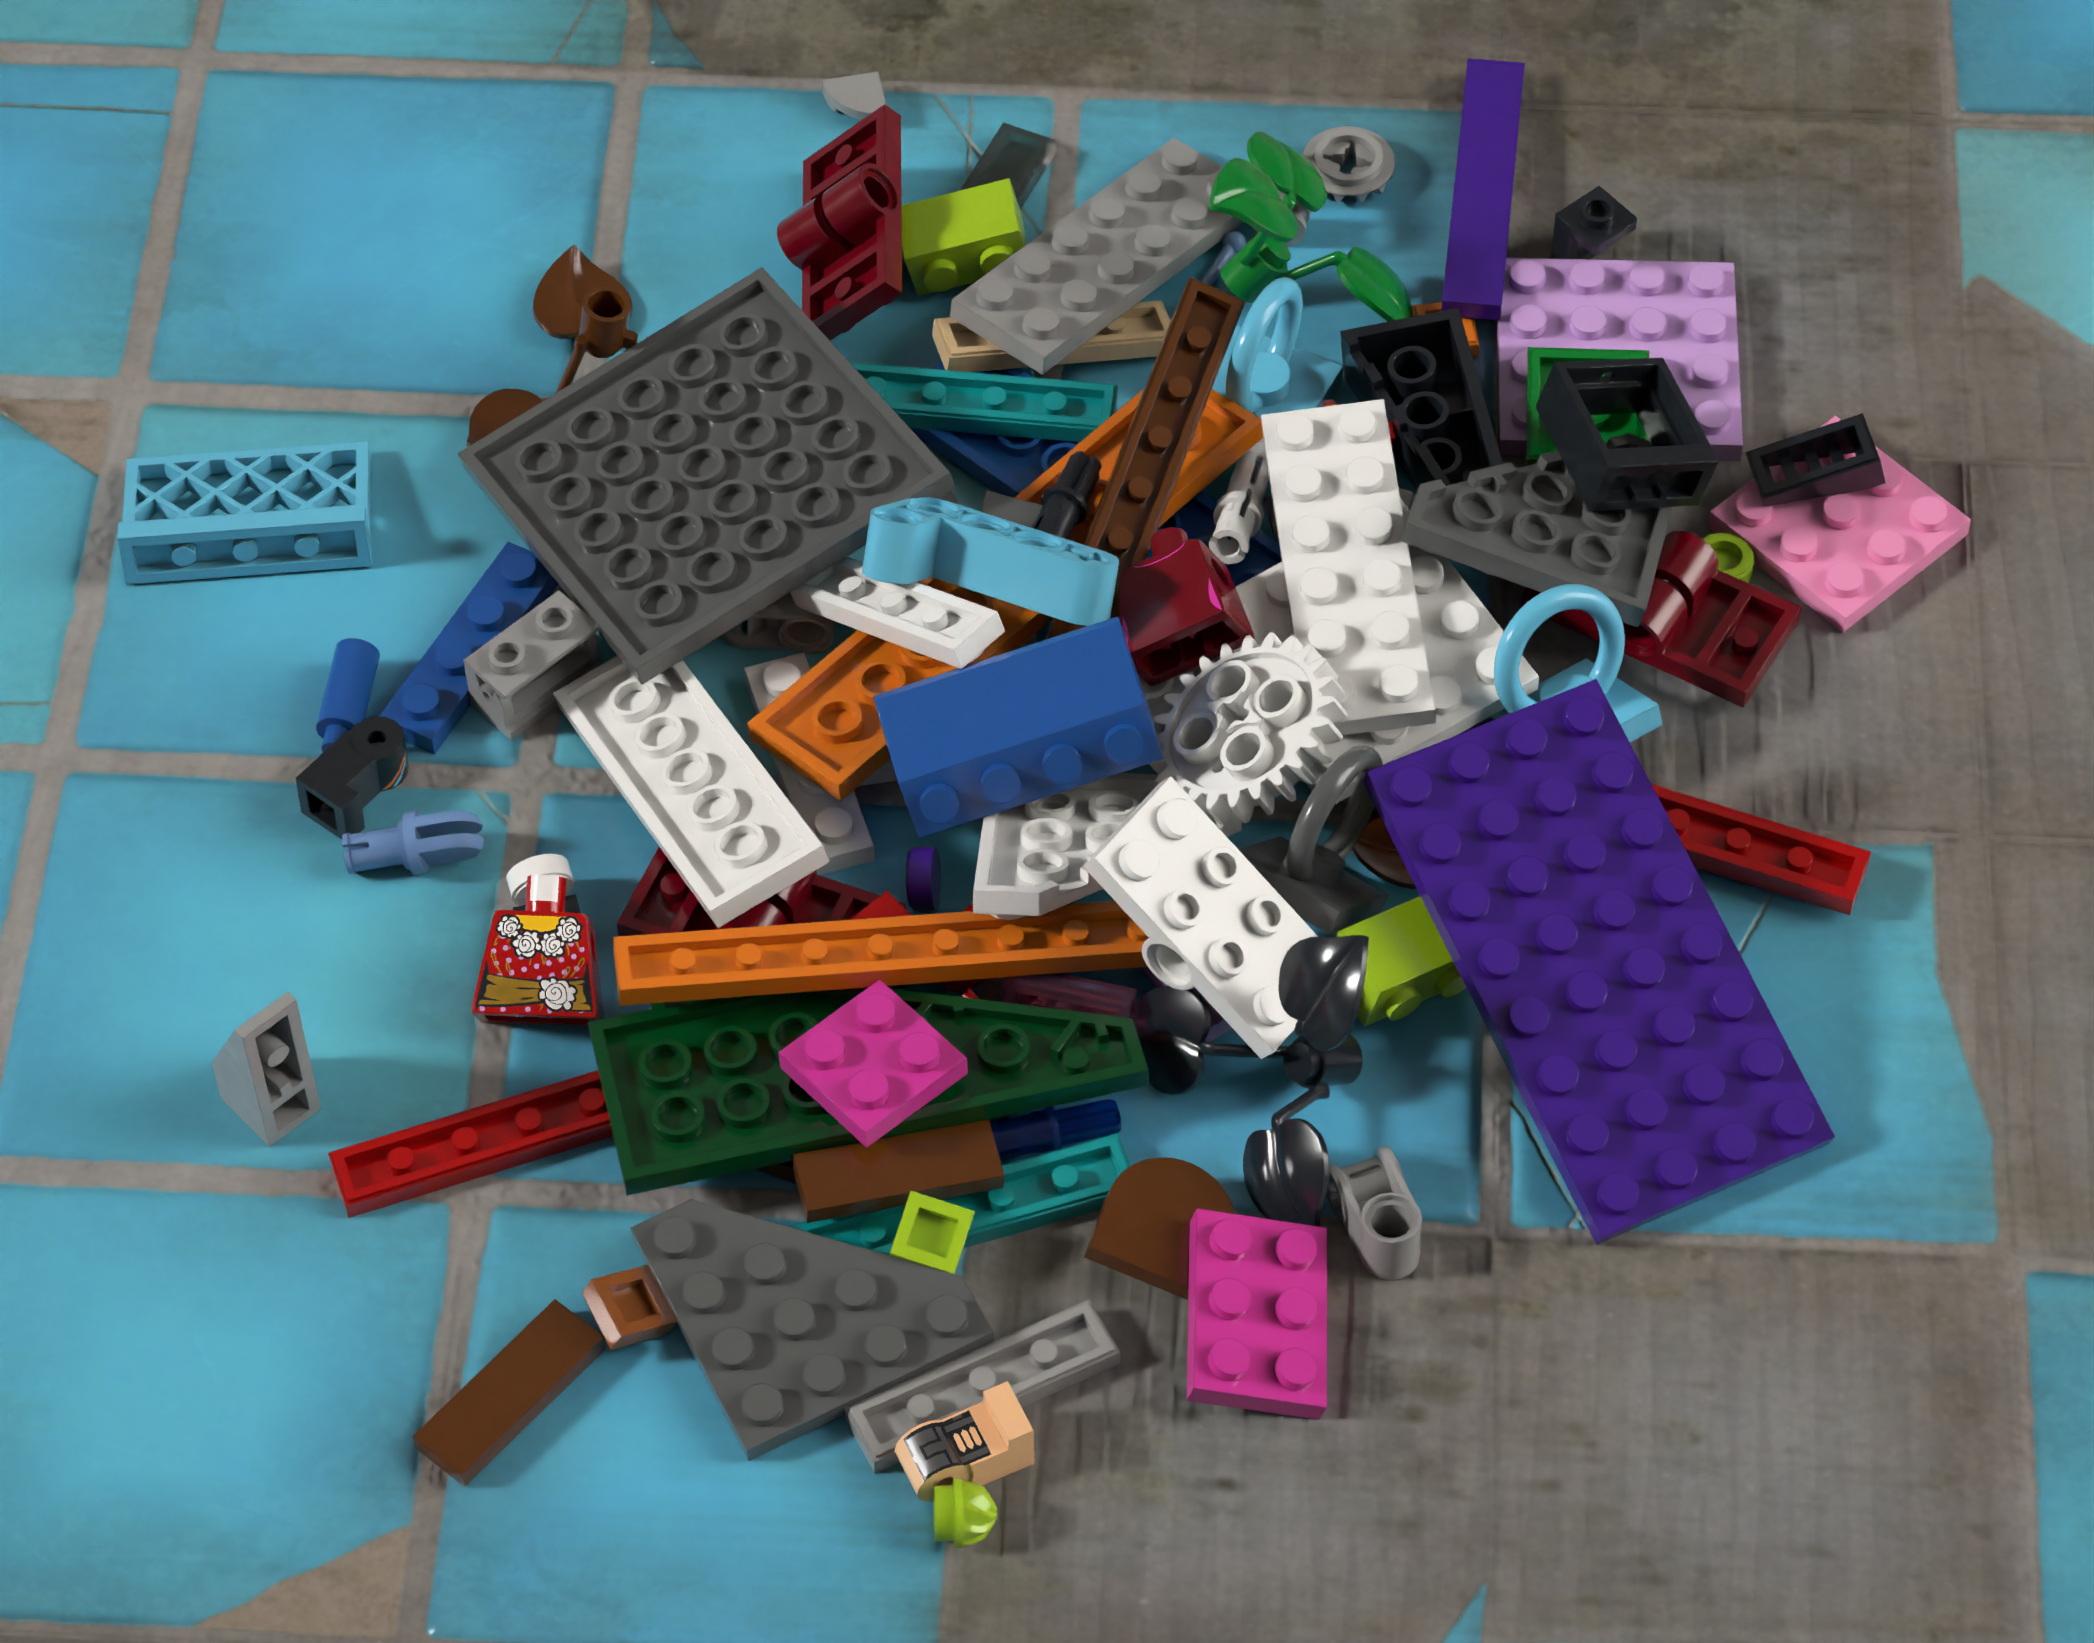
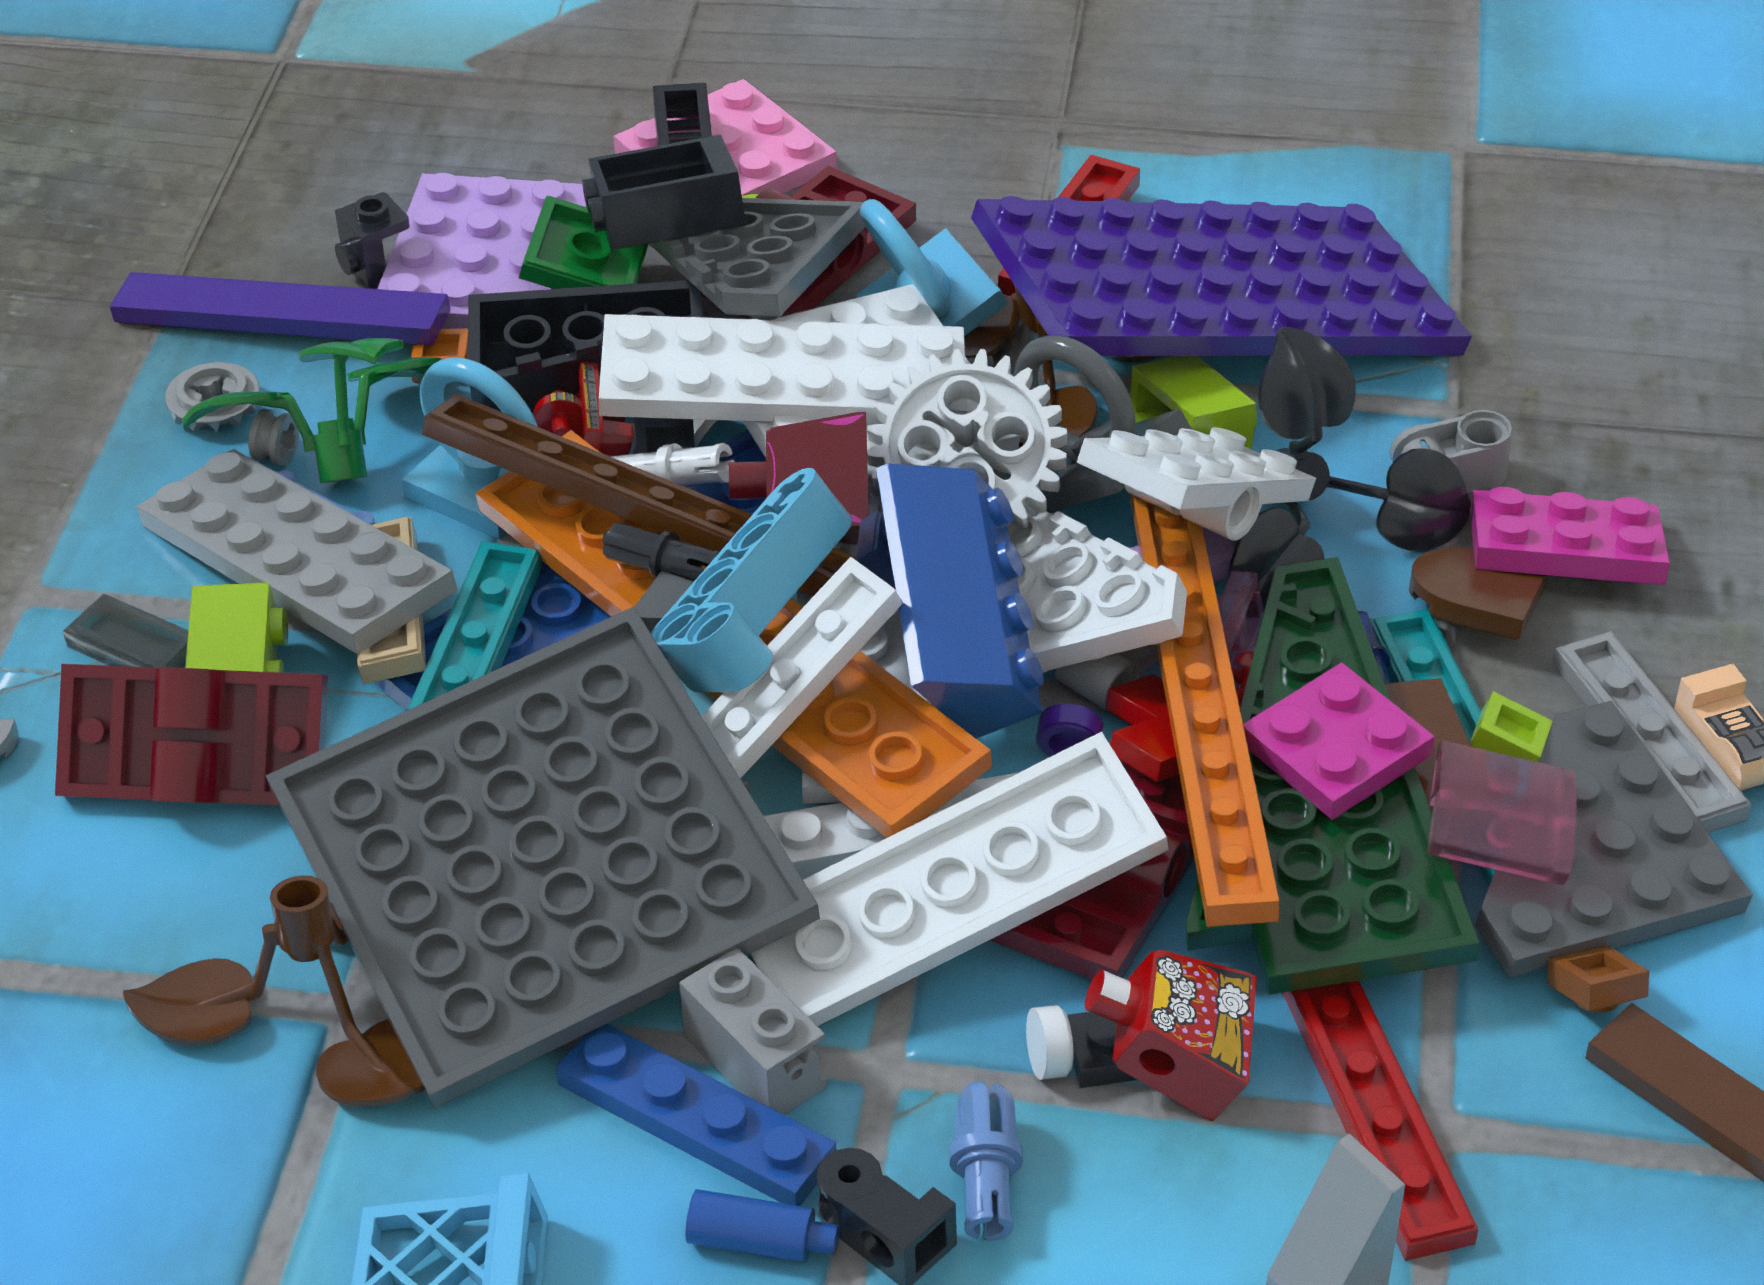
camera: 85 degrees left, 10 degrees down
(787, 1198) = (1503, 812): none -> clear pink slope

